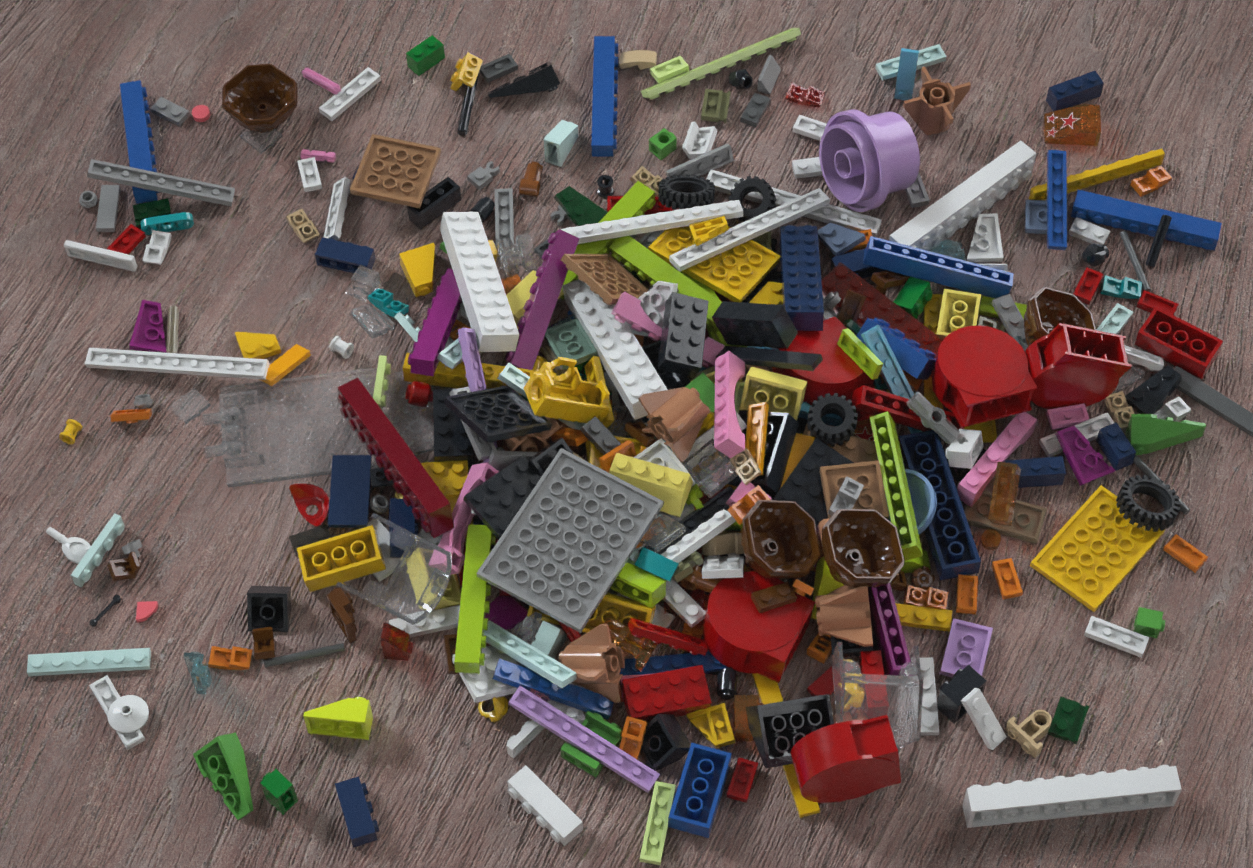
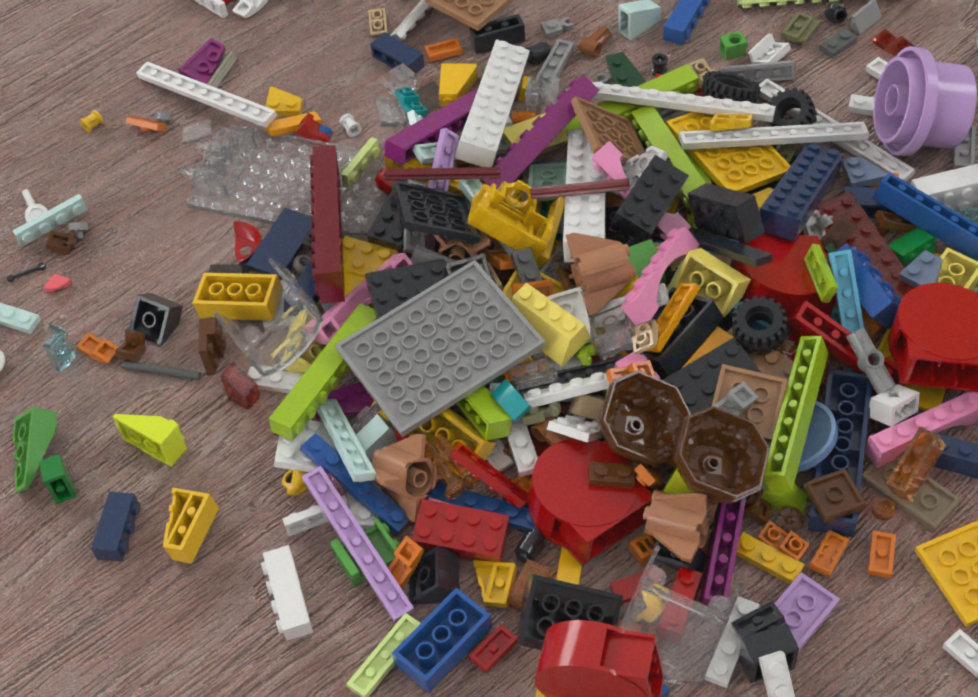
camera: 30 degrees right, 5 degrees down
(310, 365) = (313, 130): none -> red leg
(387, 236) = (443, 50): none -> orange plate
(423, 781) = (188, 523): none -> yellow wedge
(481, 373) = (442, 173): none -> dark red axle
(616, 346) = (580, 188): none -> dark red axle
(935, 319) = (922, 270): none -> sand blue wing
(942, 671) = (758, 620): none -> black plate
(954, 544) = (834, 495): none -> reddish brown tile

